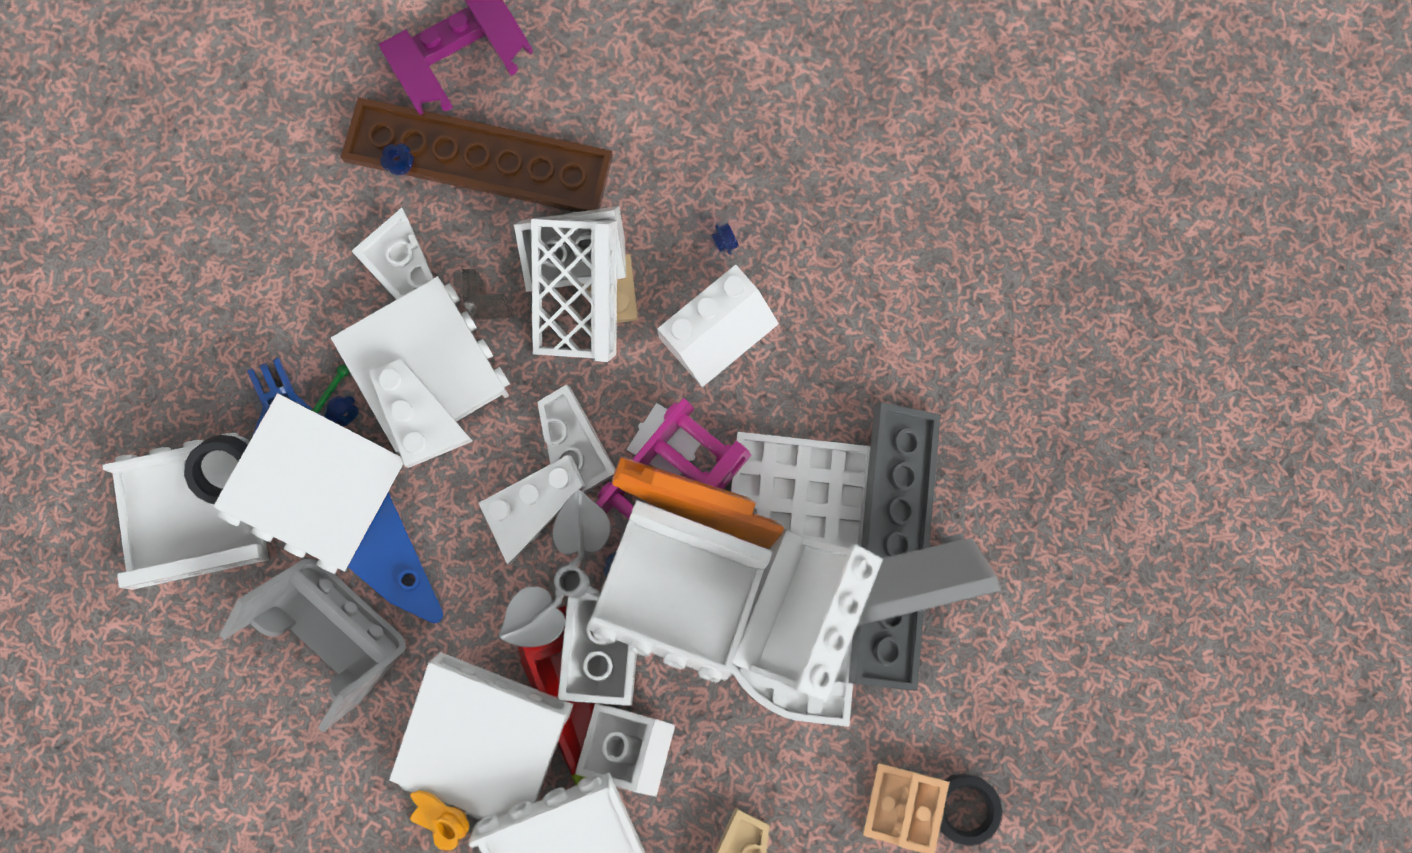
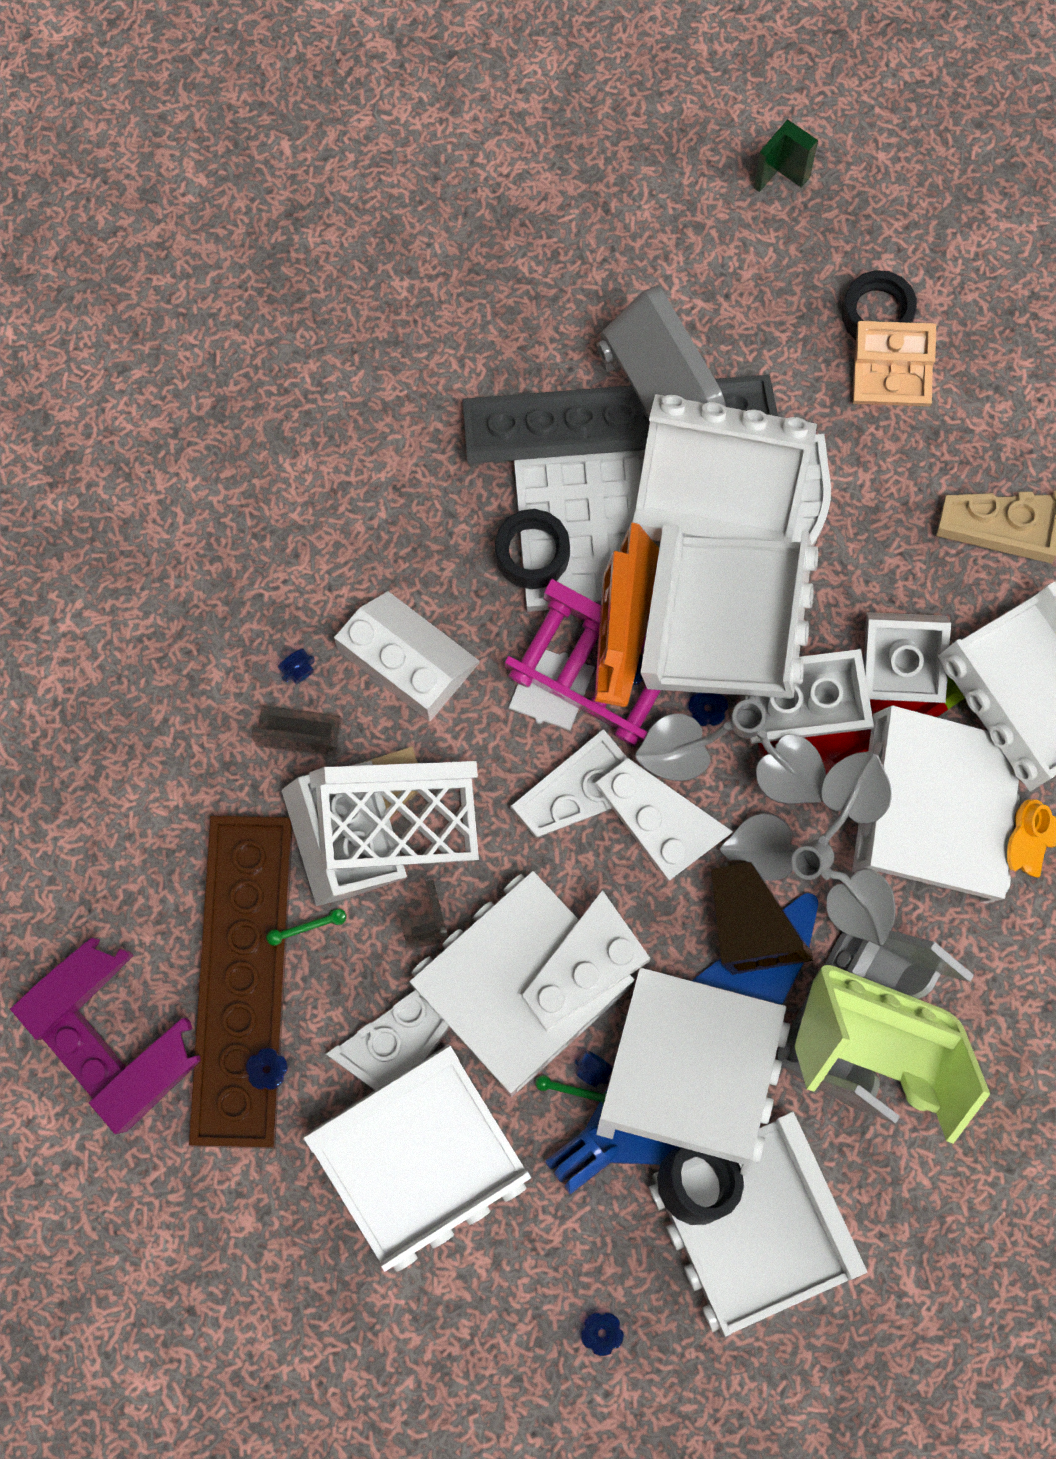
camera: 100 degrees left, 5 degrees down
(133, 373) = (613, 1338): none -> clear blue plate
(303, 262) = (418, 1159): none -> white panel
(304, 655) = (895, 1038): none -> yellowish green windscreen
(422, 561) = (752, 922): none -> dark brown slope
(493, 668) = (859, 905): none -> light grey plant
(500, 182) = (335, 917): none -> green hinge
(669, 230) = (297, 731): none -> clear smoke panel
(790, 417) = (528, 520): none -> black tyre
(1138, 756) = (788, 152): none -> dark green panel

